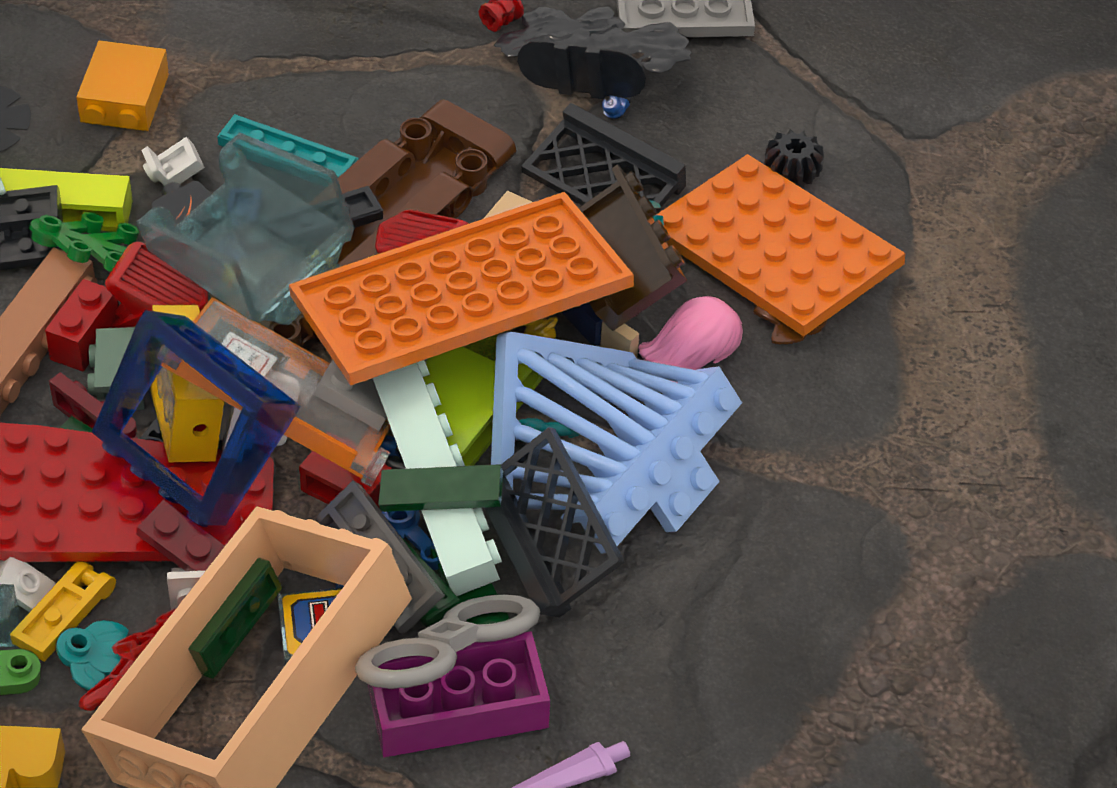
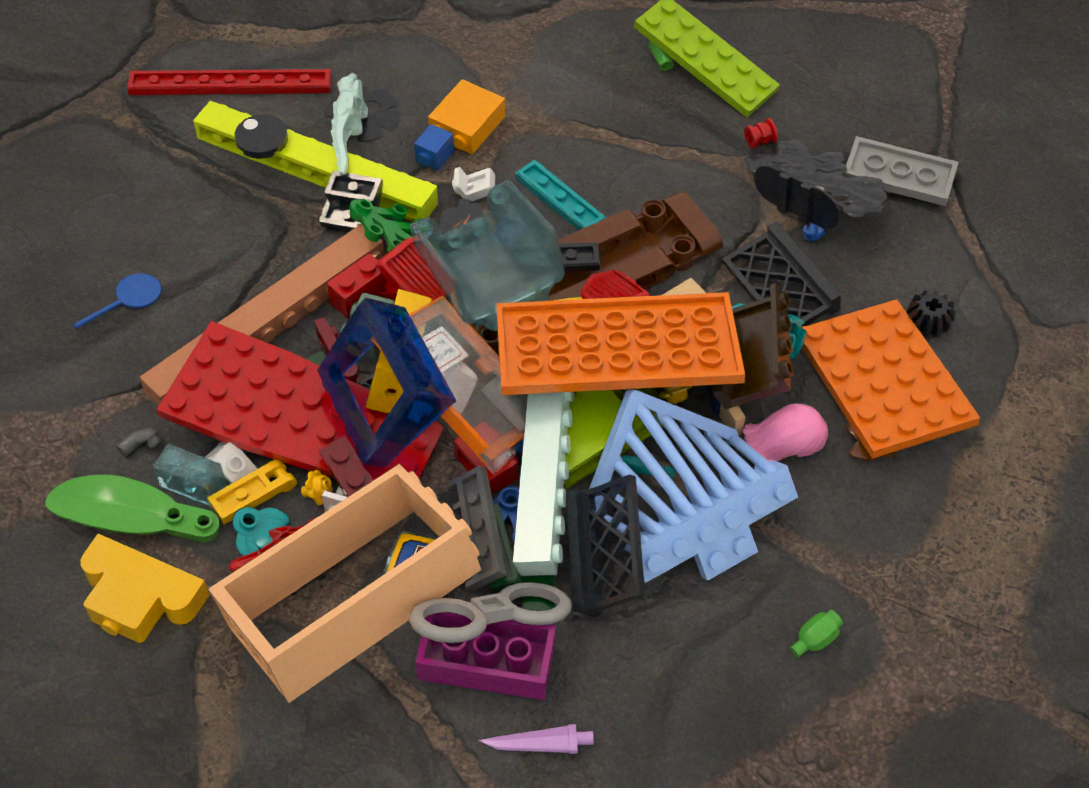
camera: 25 degrees right, 5 degrees up
(98, 133) = (434, 147): none -> blue brick
(148, 578) = (316, 486): none -> yellow plant
(235, 618) = (357, 539): dark green tile -> none
(441, 488) = (537, 493): dark green tile -> none
(829, 546) = (817, 632): none -> bright green plant

